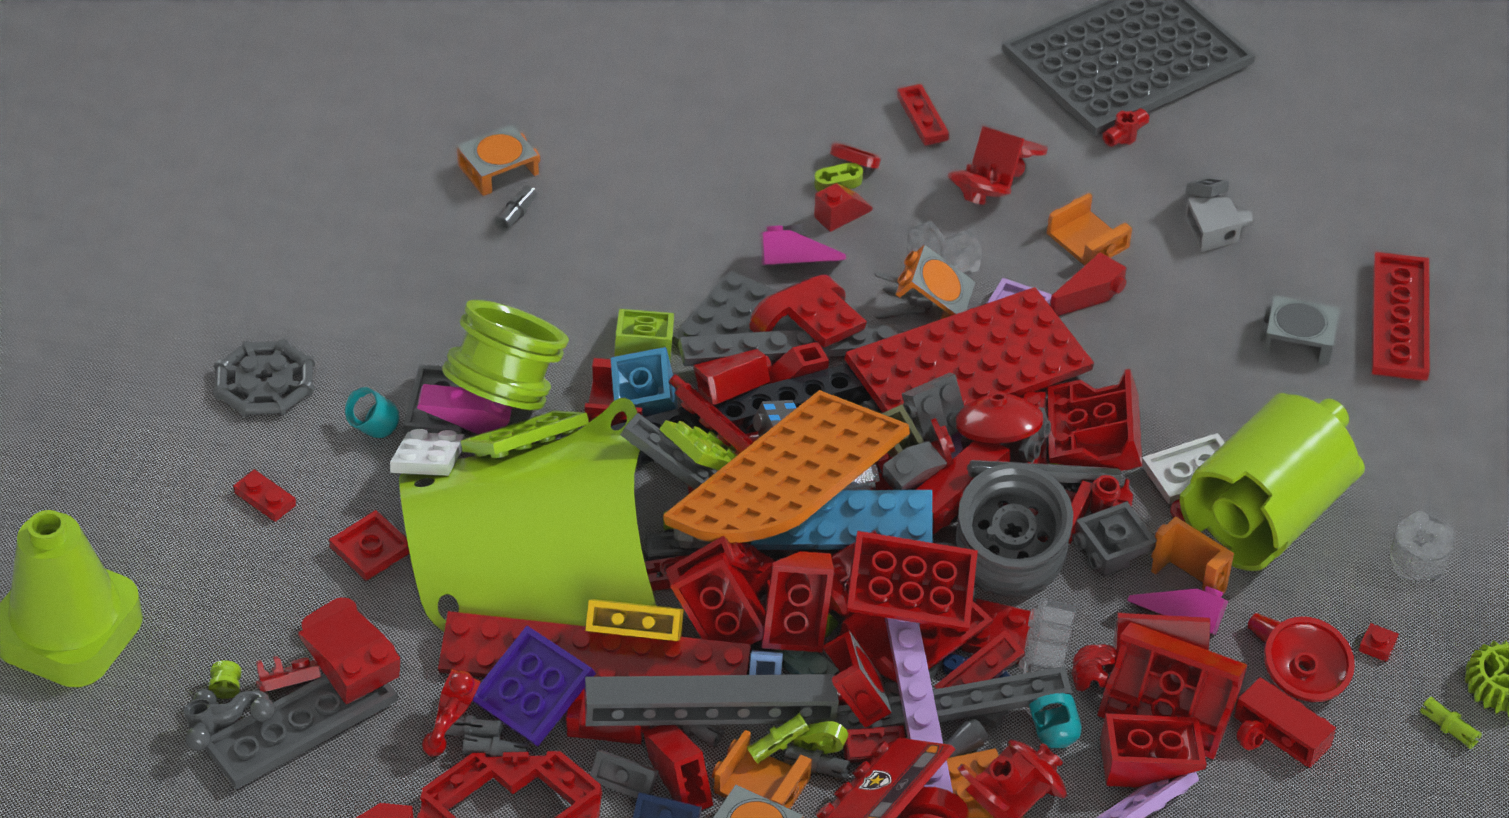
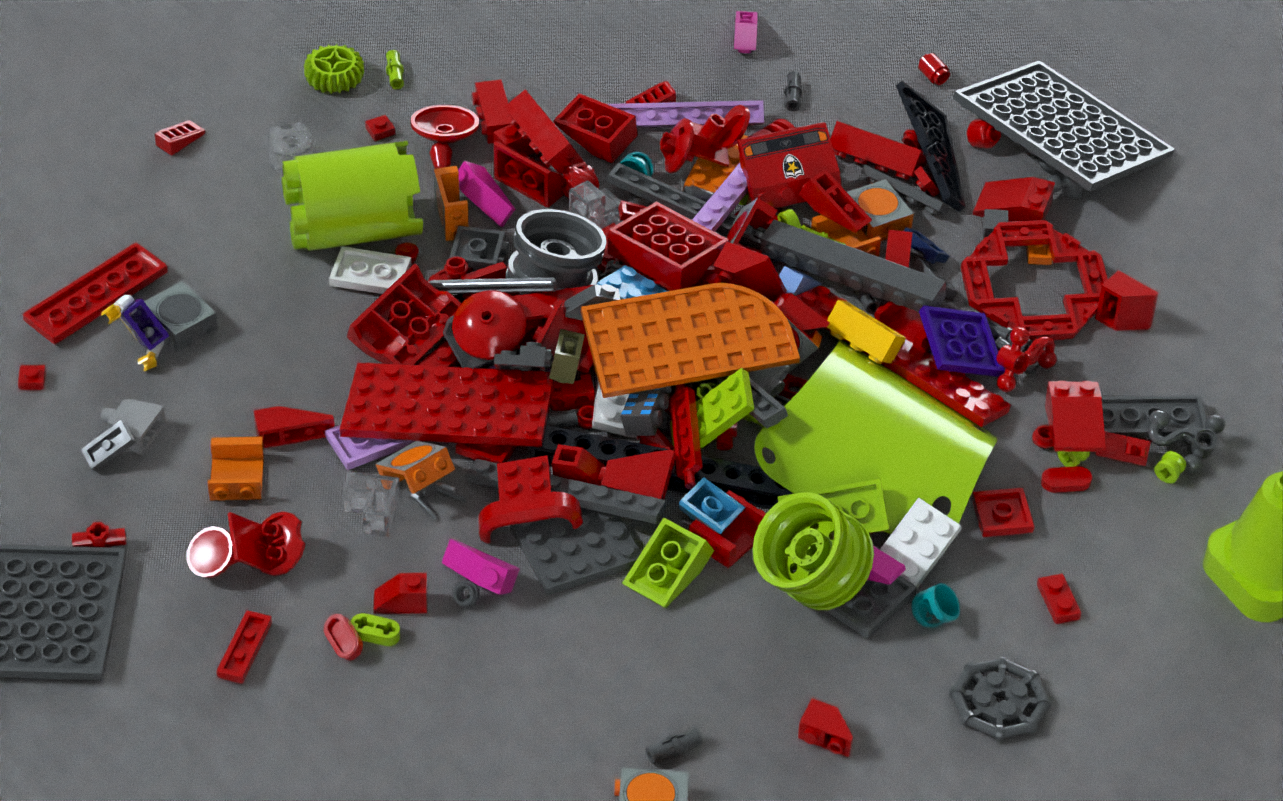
camera: 145 degrees left, 0 degrees up
(397, 275) = (825, 727): none -> red slope
(797, 768) = (832, 201): none -> red slope
(1316, 280) = (142, 326): none -> torso
(1352, 224) = (32, 377): none -> red plate

